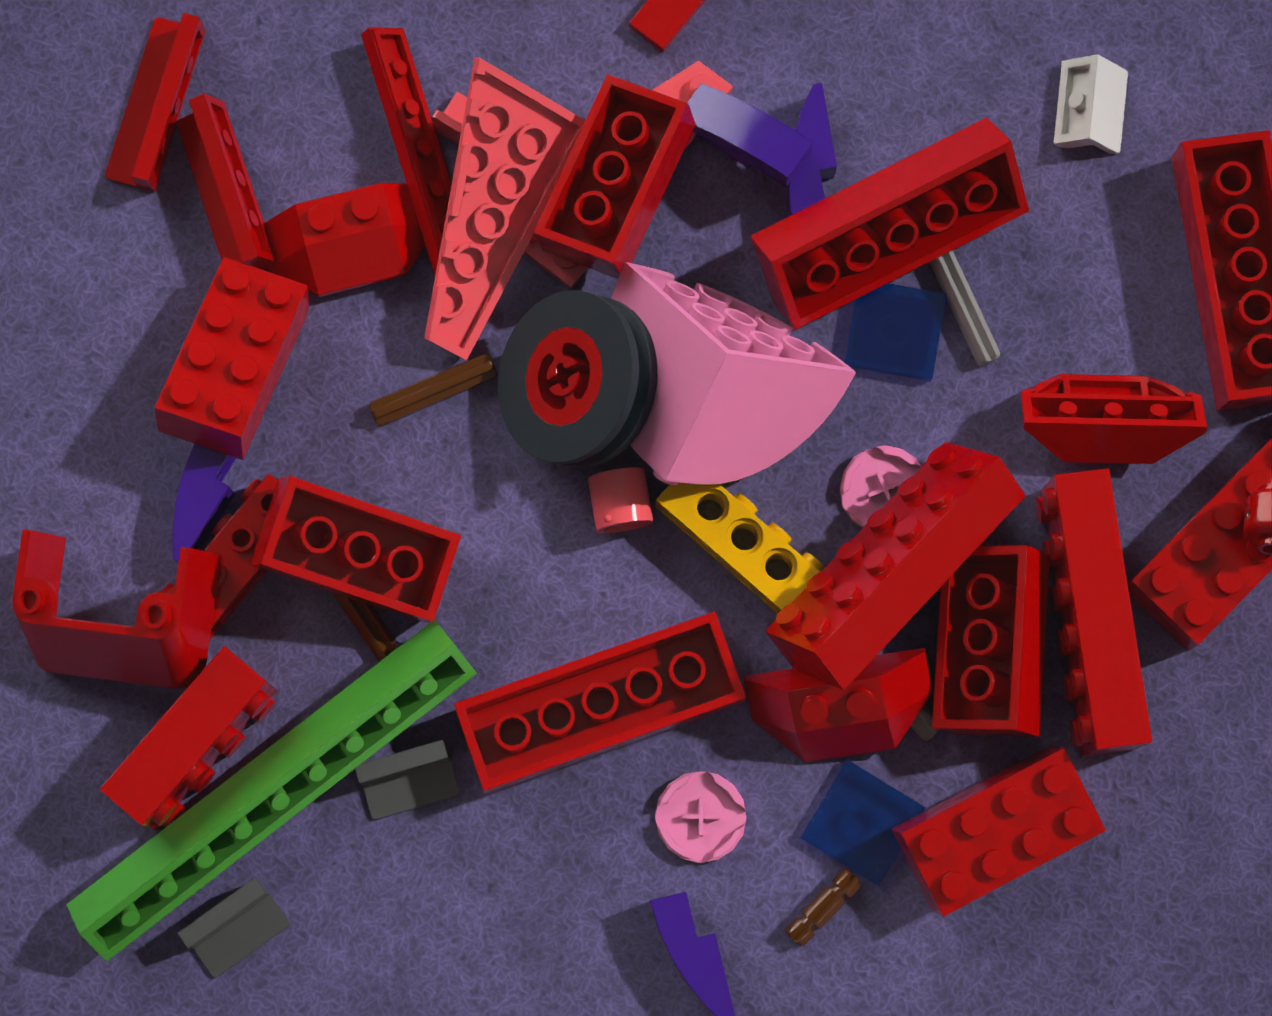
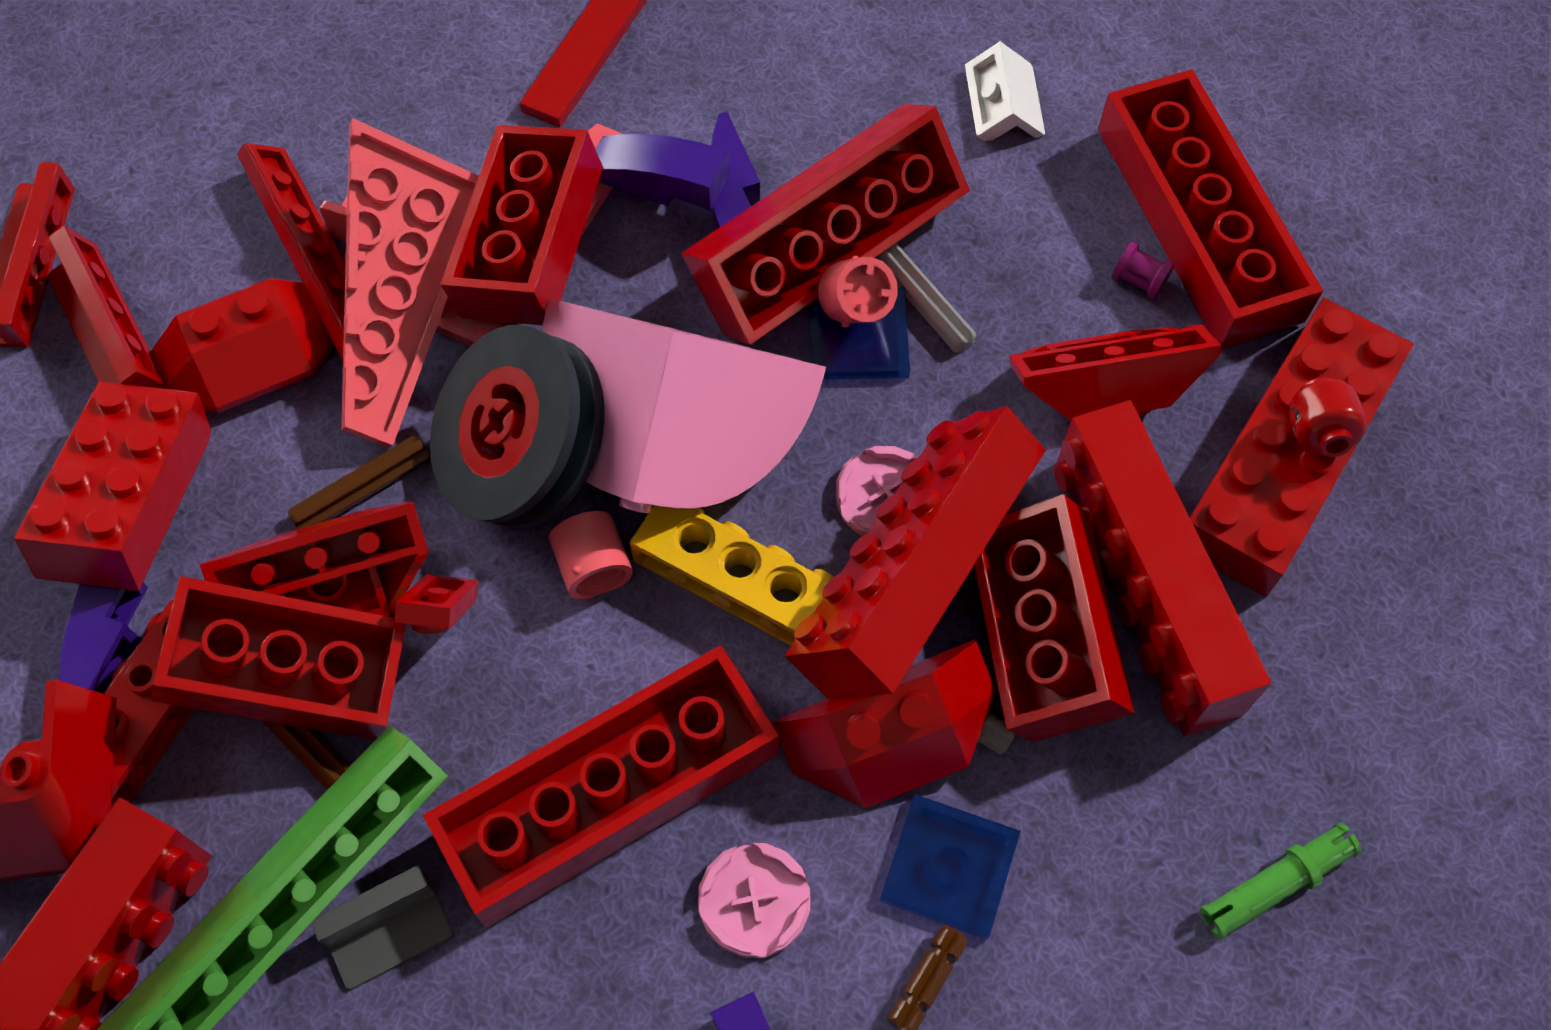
camera: 10 degrees left, 15 degrees down
(400, 466) = (344, 562): none -> red wedge
(487, 519) = (436, 603): none -> red plate
(900, 302) = (857, 290): none -> coral piece
(998, 829) = (1115, 837): red brick -> none
(1123, 890) = (1298, 869): none -> bright green pin
(1168, 321) = (1142, 271): none -> magenta bush

